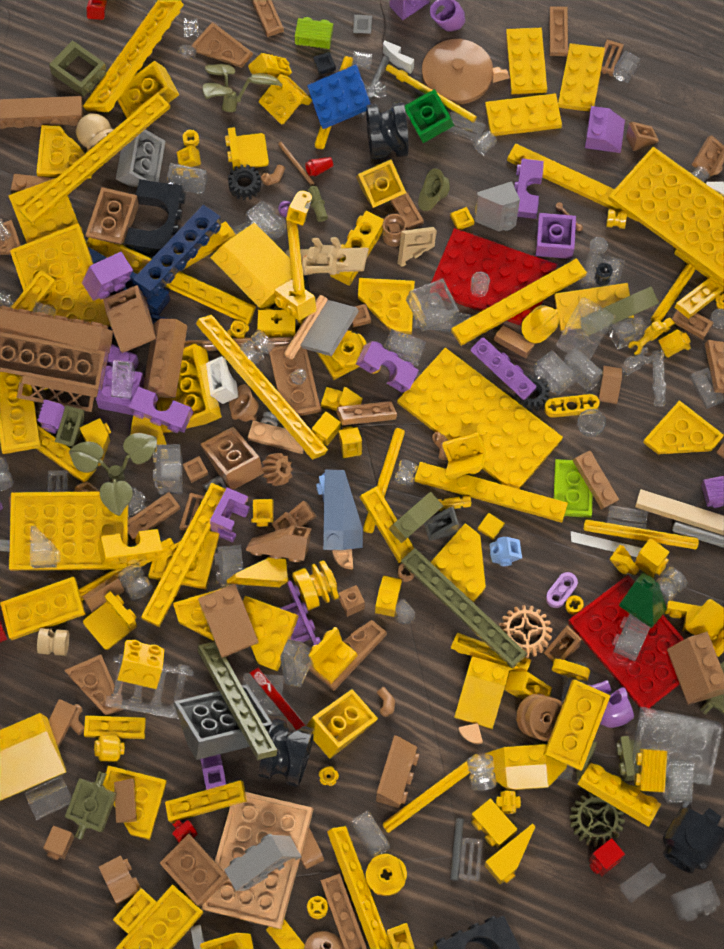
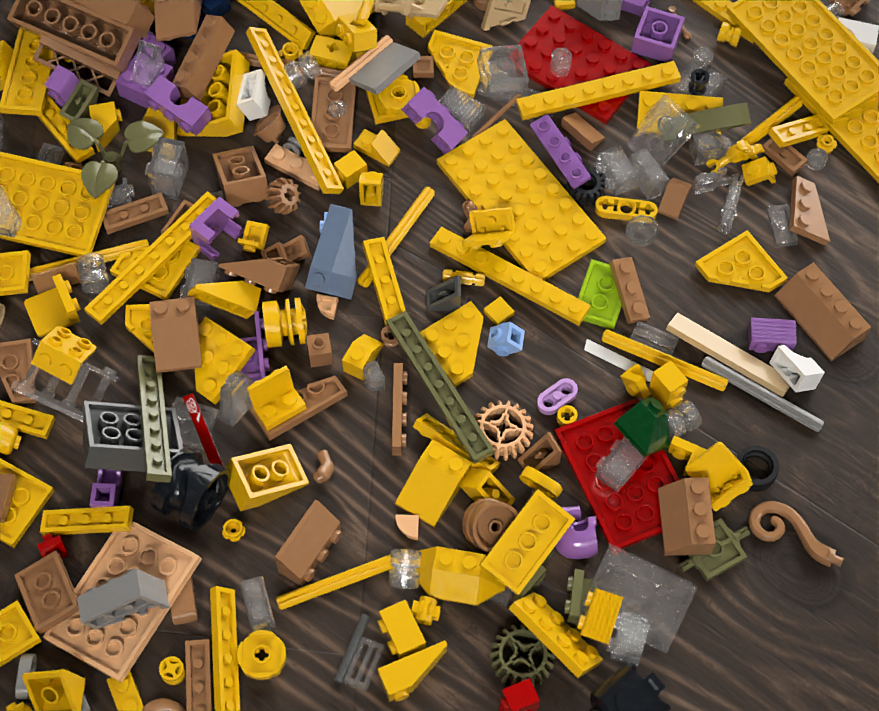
camera: 15 degrees right, 5 degrees down
(114, 552) = (79, 235): yellow arch -> none
(195, 469) = (197, 177): medium nougat plate -> none
(366, 413) = (398, 163): medium nougat plate -> none
(405, 473) = (420, 235): clear wheel -> none
(415, 517) = (415, 279): olive slope -> none
(432, 627) = (399, 418): none -> medium nougat plate
(438, 344) = (497, 115): none -> medium nougat axle
(540, 324) = (615, 119): yellow piece -> none

